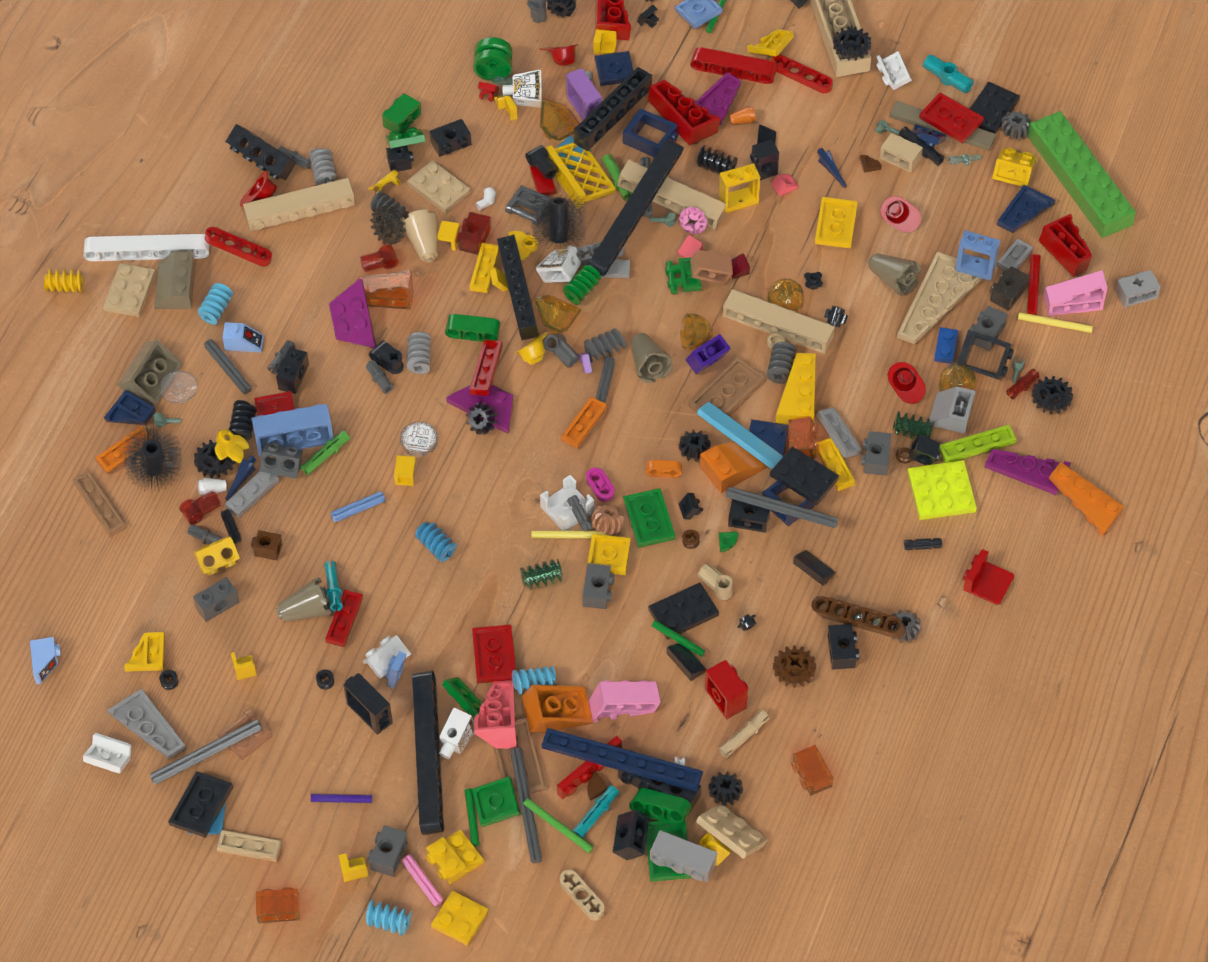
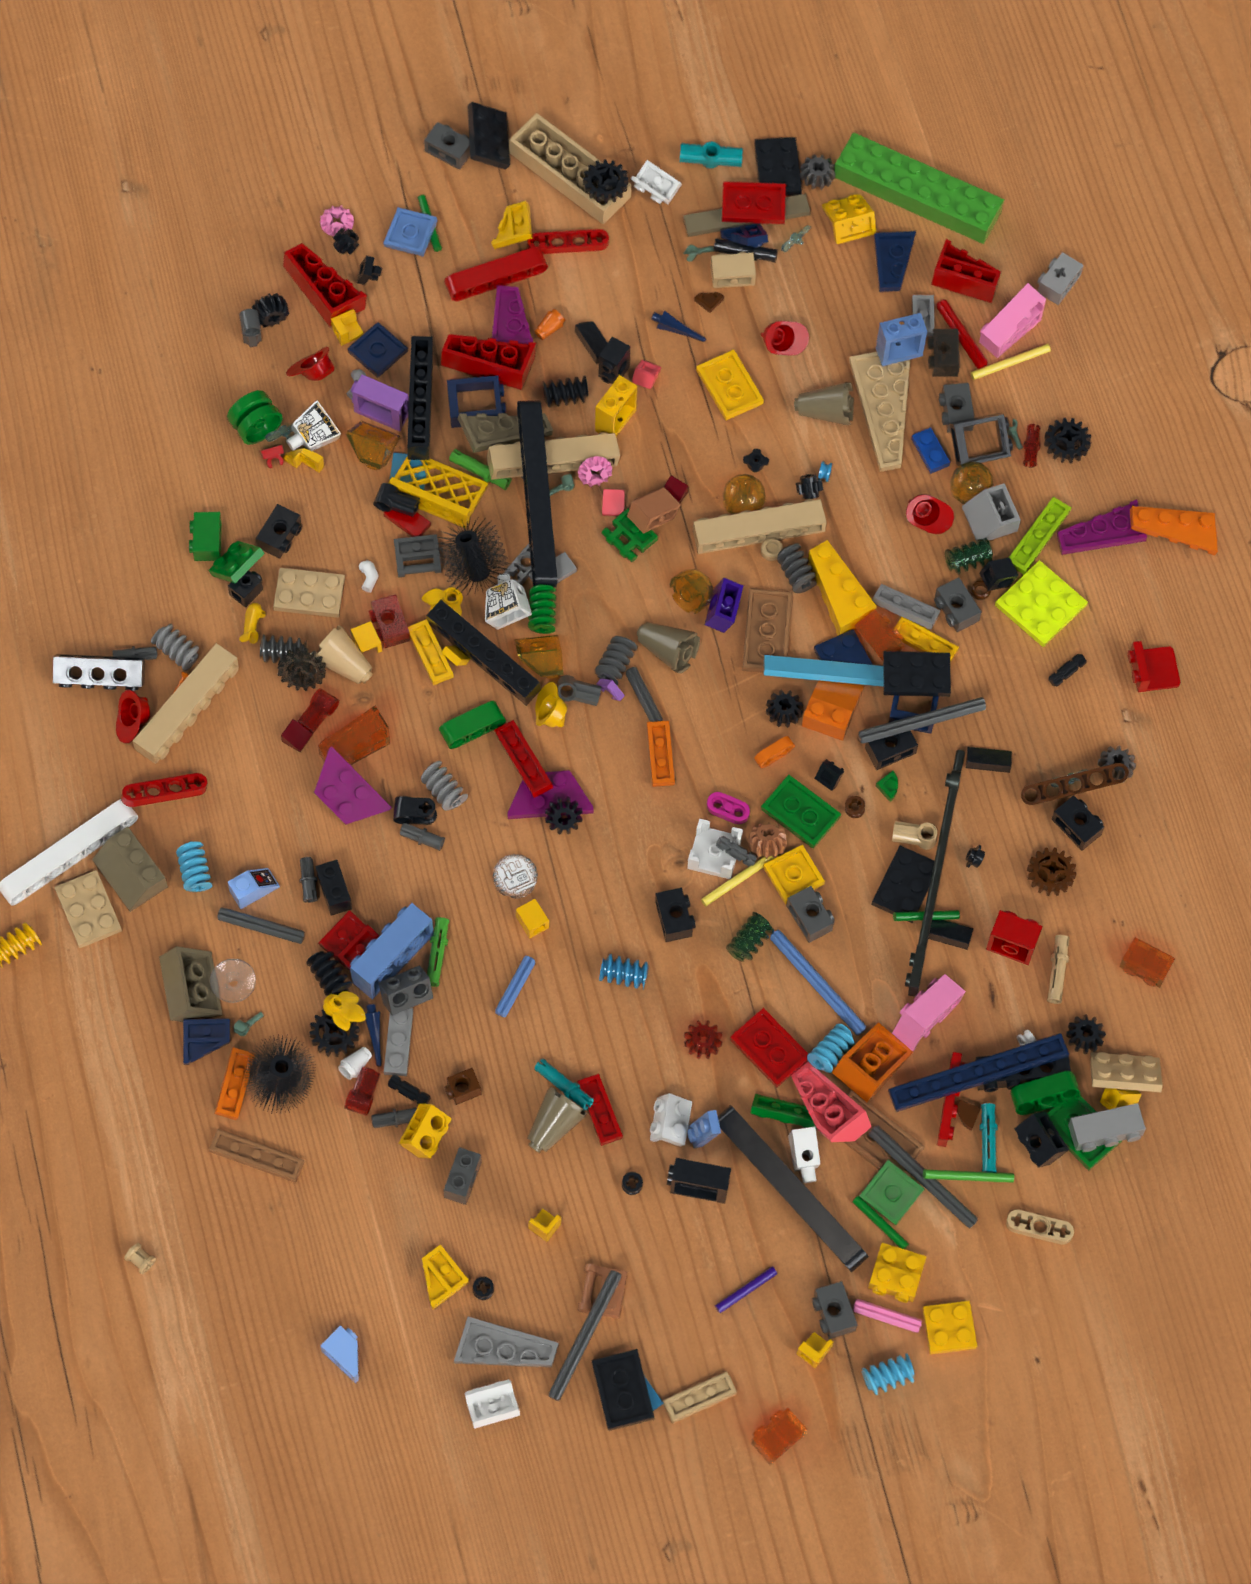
camera: 40 degrees left, 10 degrees up
(352, 266) = (296, 735): none -> dark red slope
(452, 618) = (694, 1036): none -> clear red gear
(503, 518) = (673, 927): none -> black brick
(565, 634) = (818, 982): none -> medium blue axle
(642, 153) = (487, 431): none -> dark tan wing
(646, 659) = (917, 959): none -> pearl dark grey bar
(856, 314) = (825, 471): none -> dark azure bush

